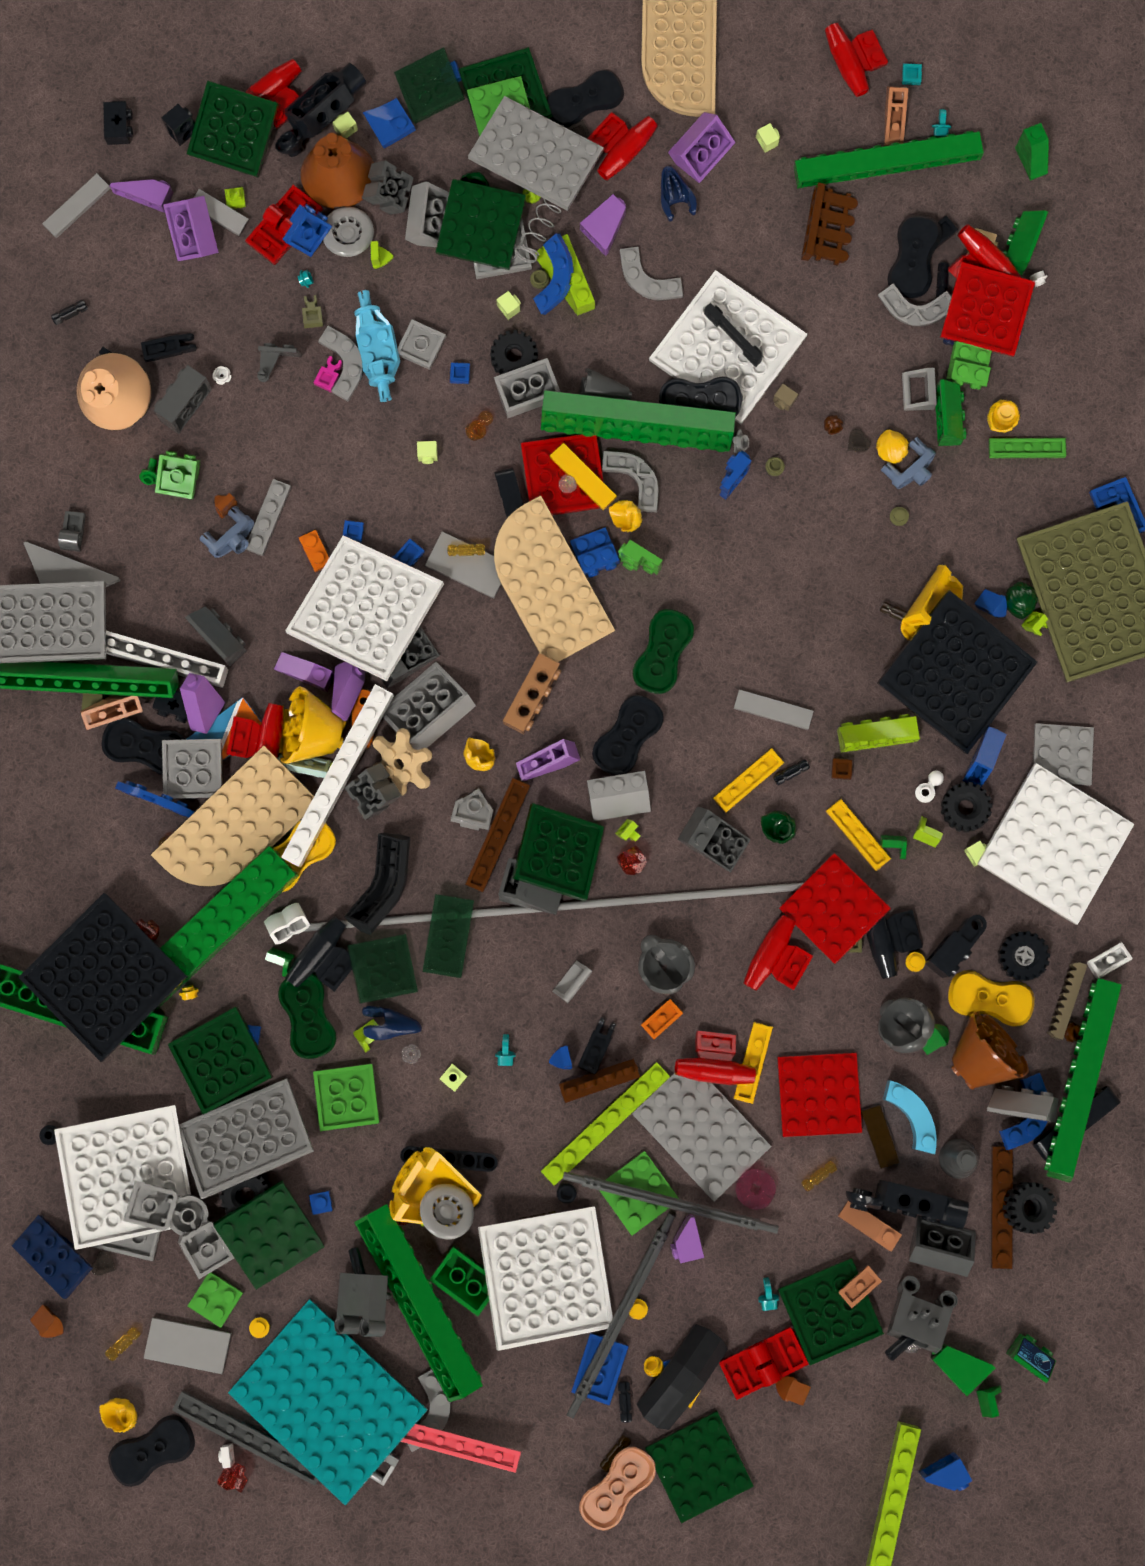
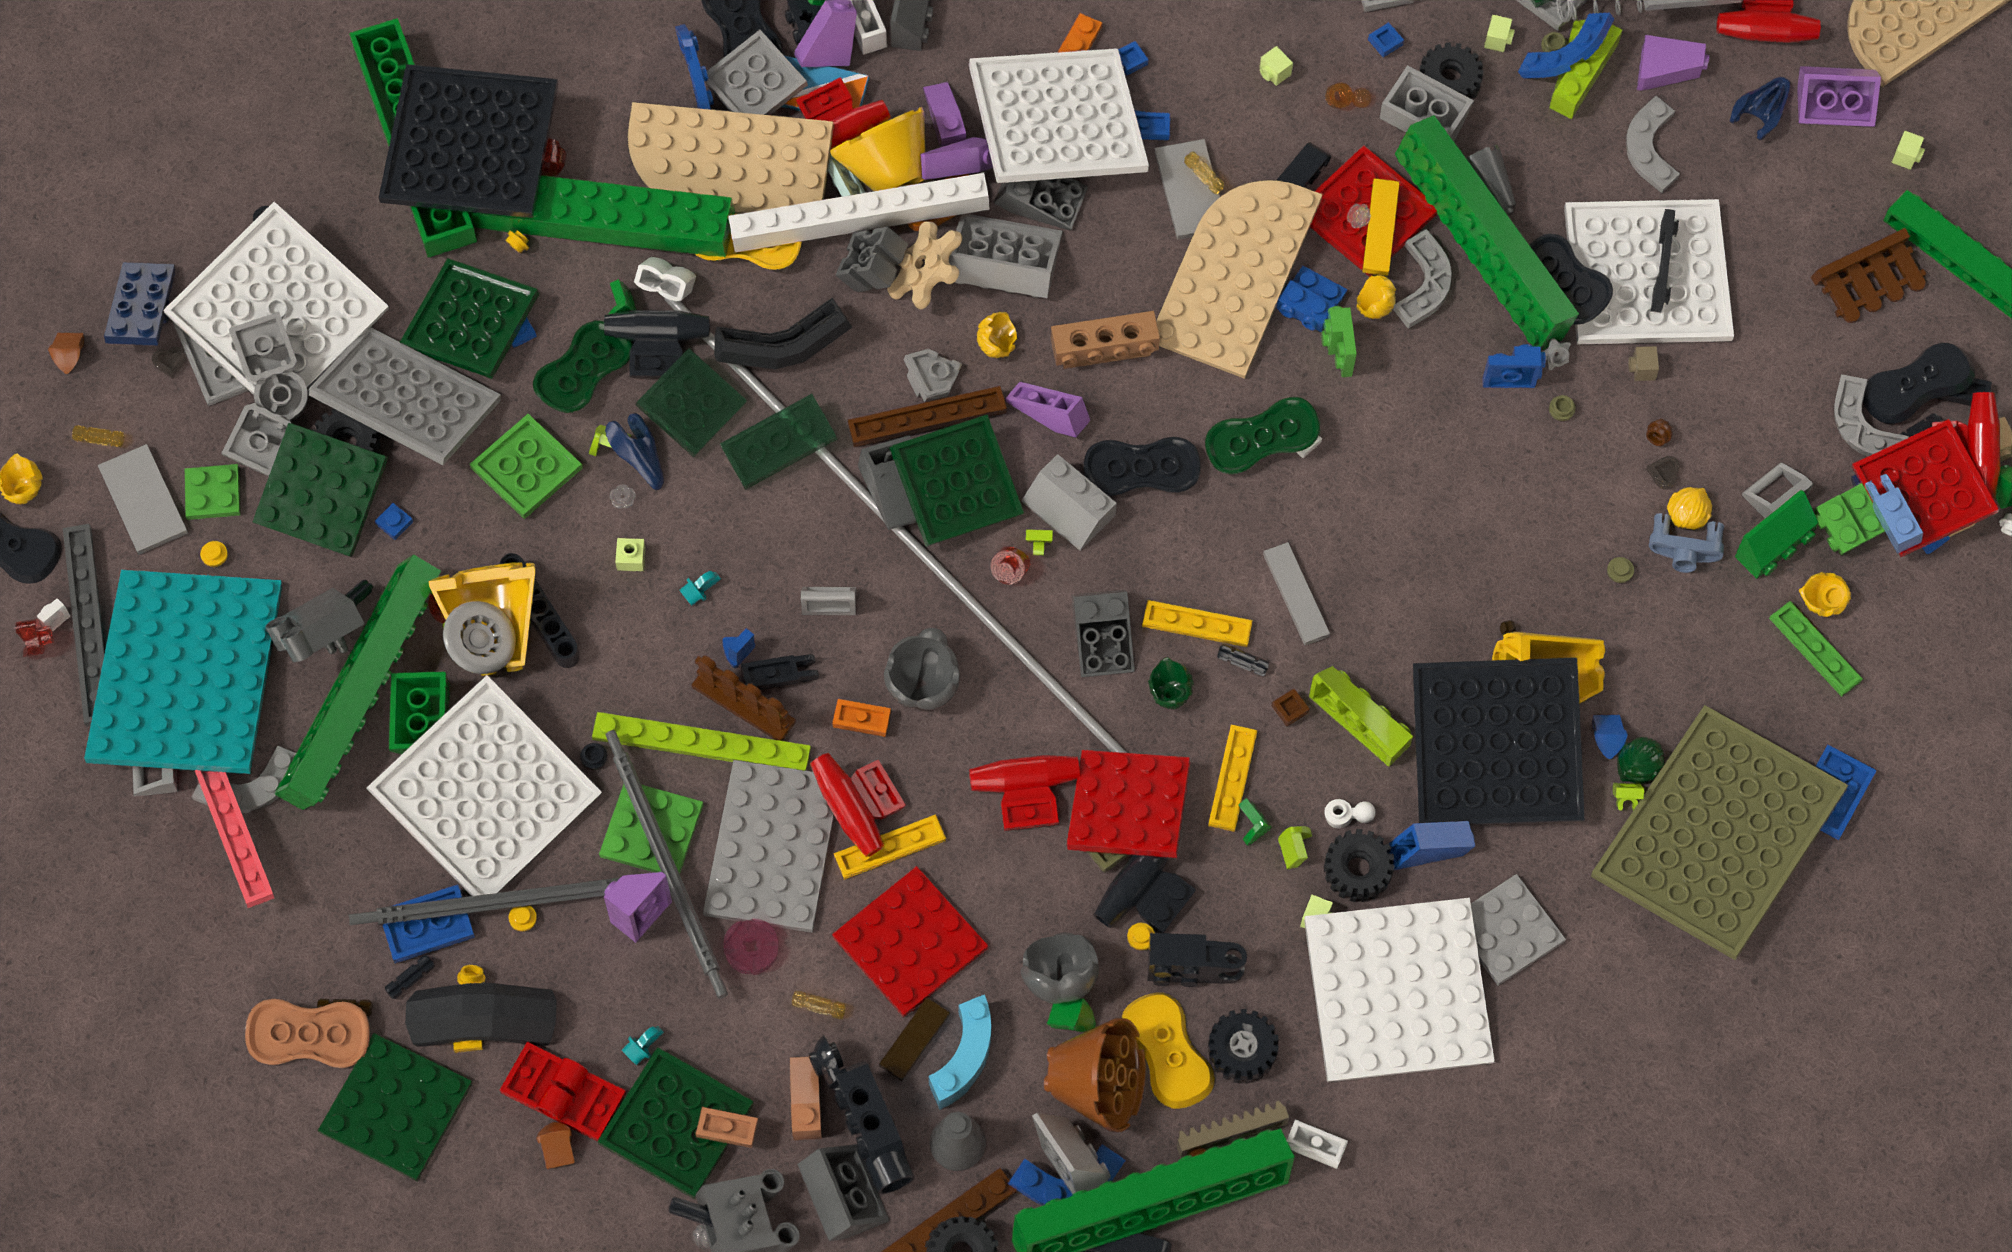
camera: 50 degrees right, 15 degrees down
(994, 341) = (1895, 515): none -> medium blue hinge

